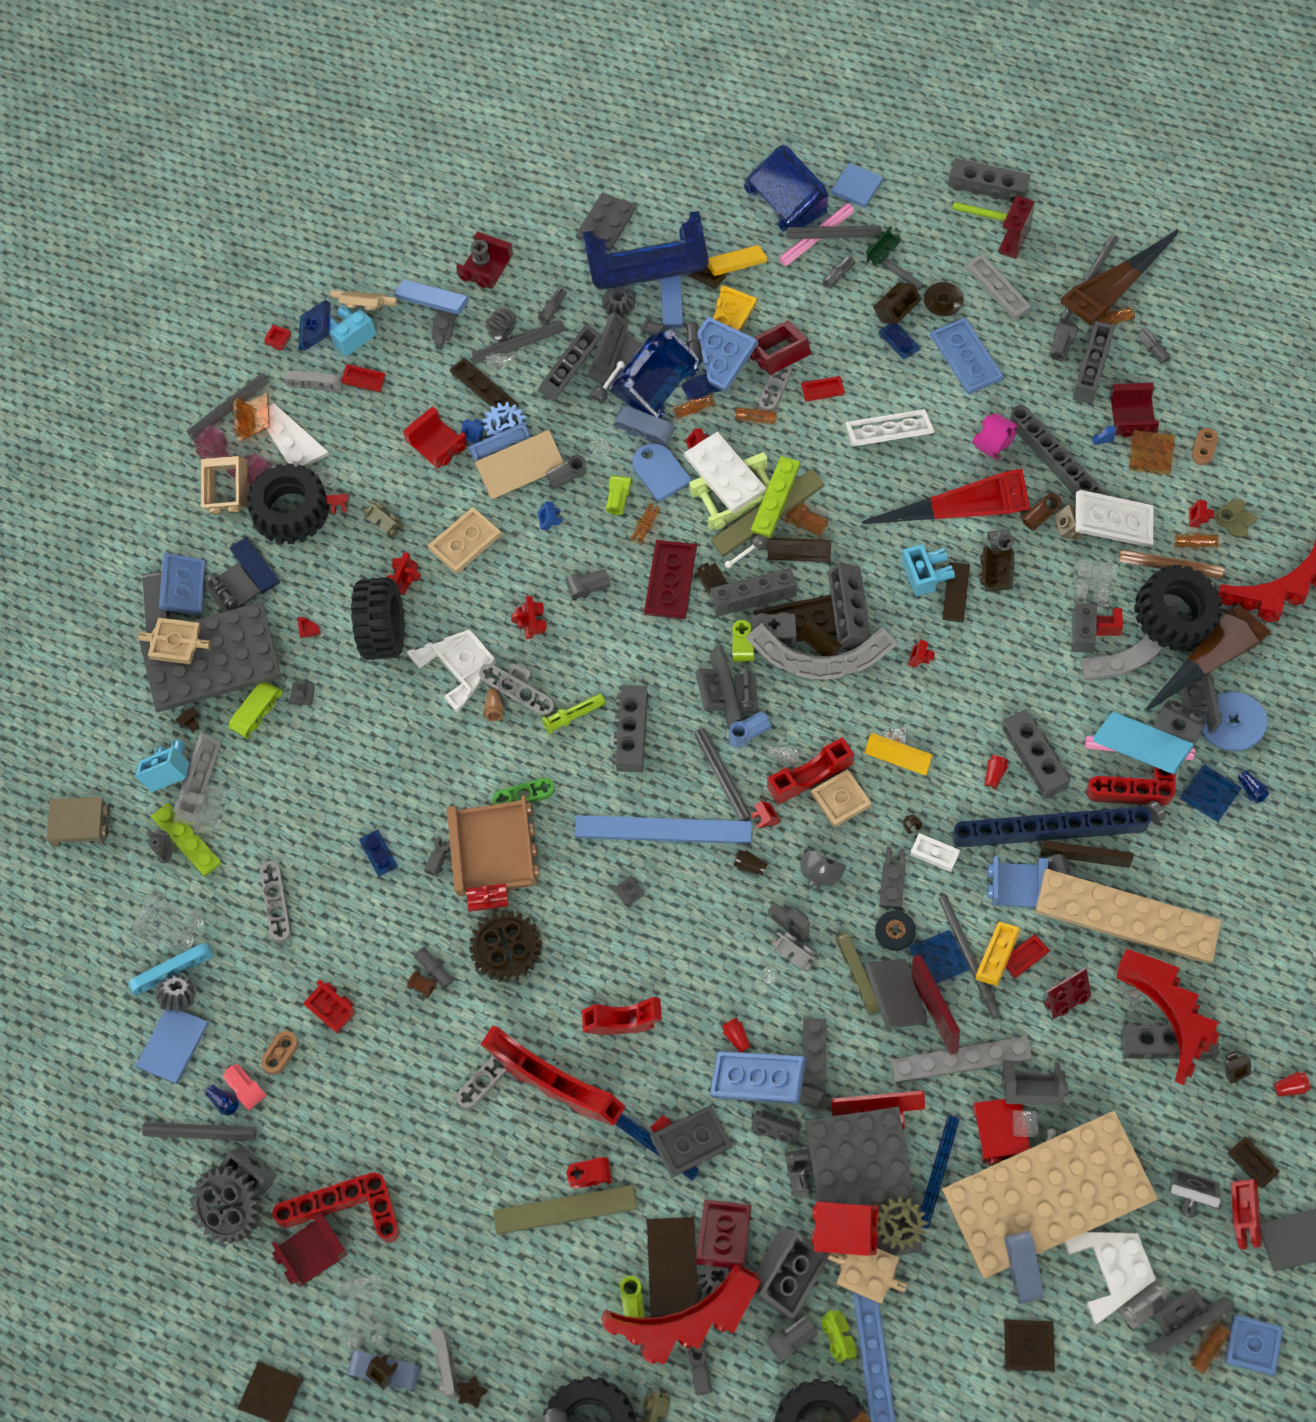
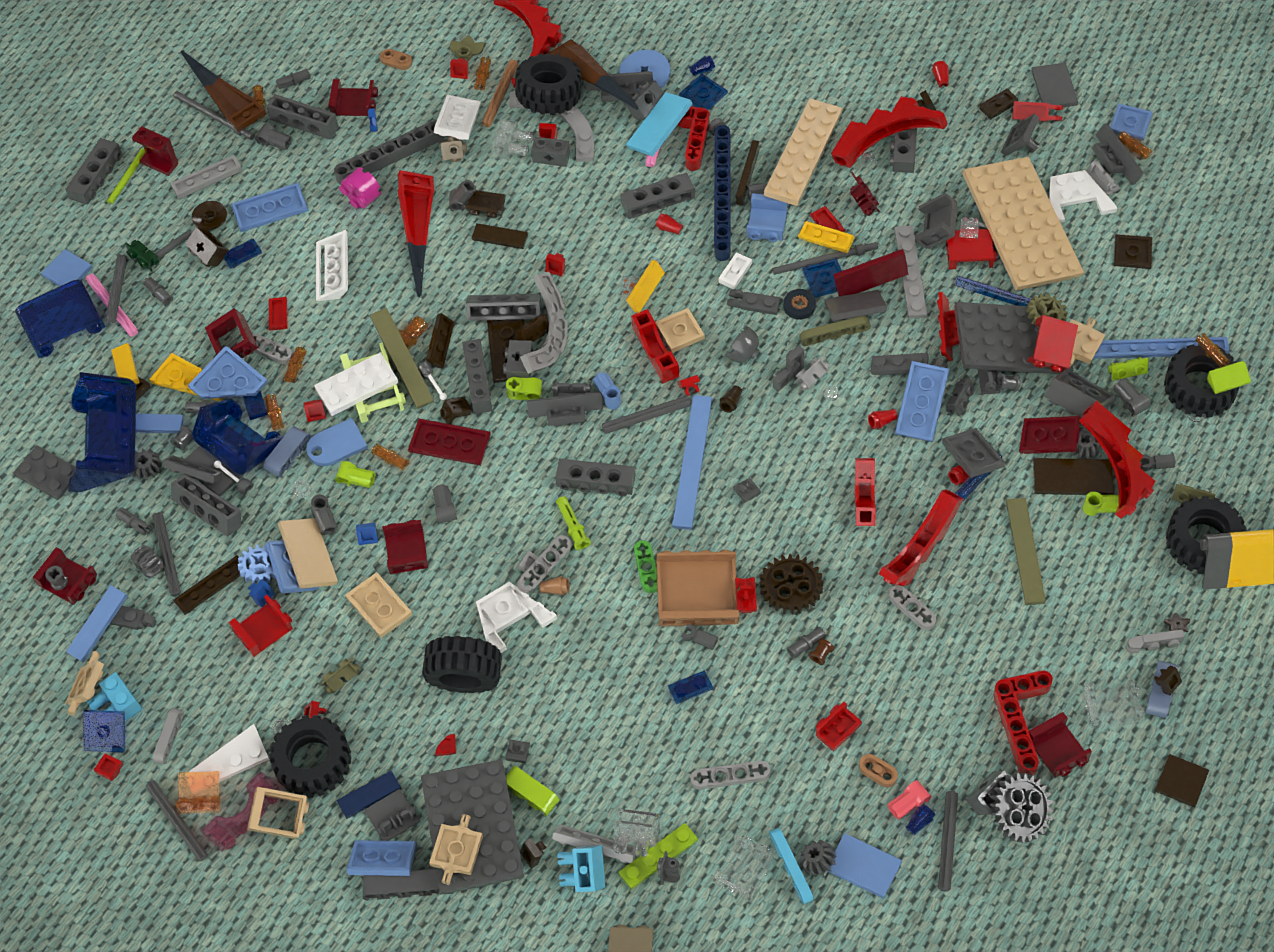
camera: 85 degrees left, 5 degrees down
(363, 378) = (175, 689): red plate -> none
(405, 572) = (396, 656): red hips -> none
(499, 361) = (186, 570): clear cone -> none
(526, 617) = (471, 552): red hips -> none
(534, 556) = (405, 547): none -> dark red panel
(591, 1173) = (996, 528): red piece -> none
(775, 497) = (391, 346): lime plate -> none
(785, 754) = (634, 366): clear cone -> none
(911, 820) = (707, 284): dark brown hinge -> none
(919, 569) = (478, 253): medium azure brick -> none
(1024, 1267) = (1078, 241): sand blue beam -> none
(1041, 512) = (433, 165): reddish brown piece -> none
(1151, 452) = (395, 92): clear orange hinge -> none

